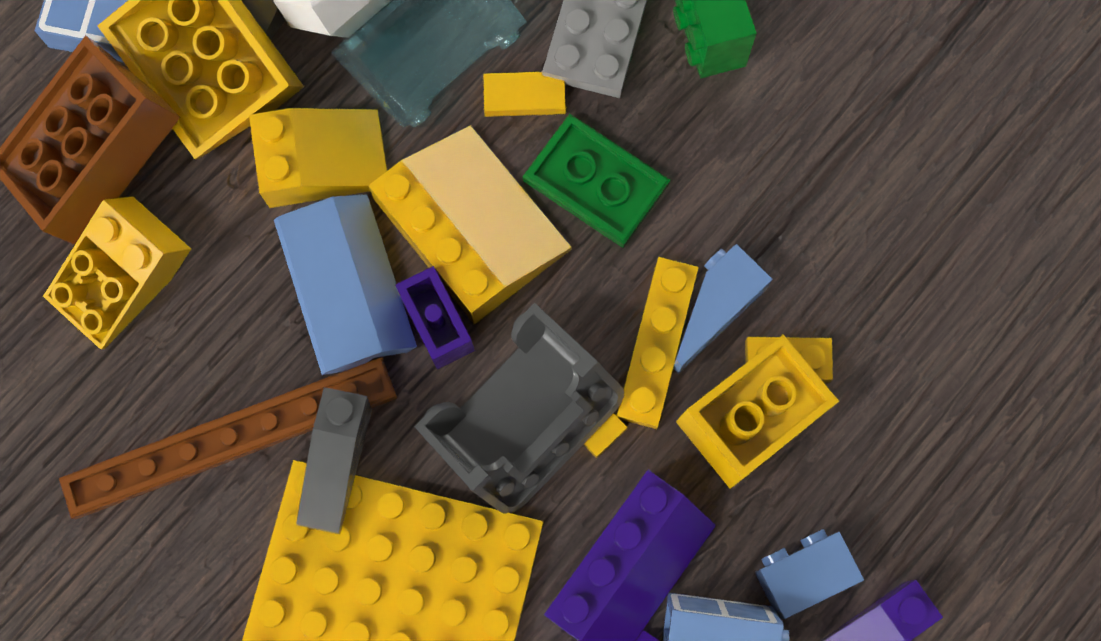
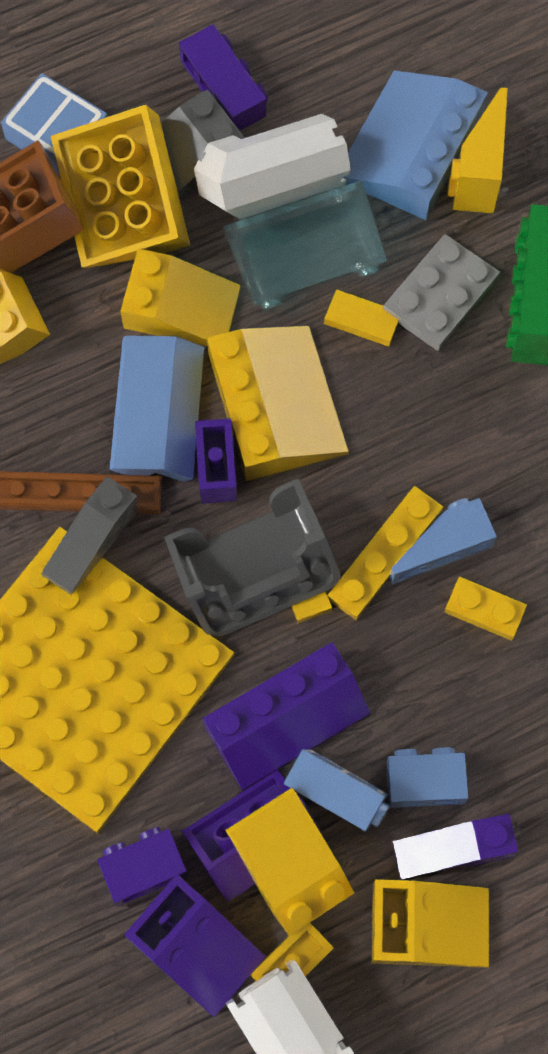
camera: 20 degrees right, 5 degrees down
(596, 180) = (391, 408): green tile -> none
(756, 411) = (439, 634): yellow slope -> none

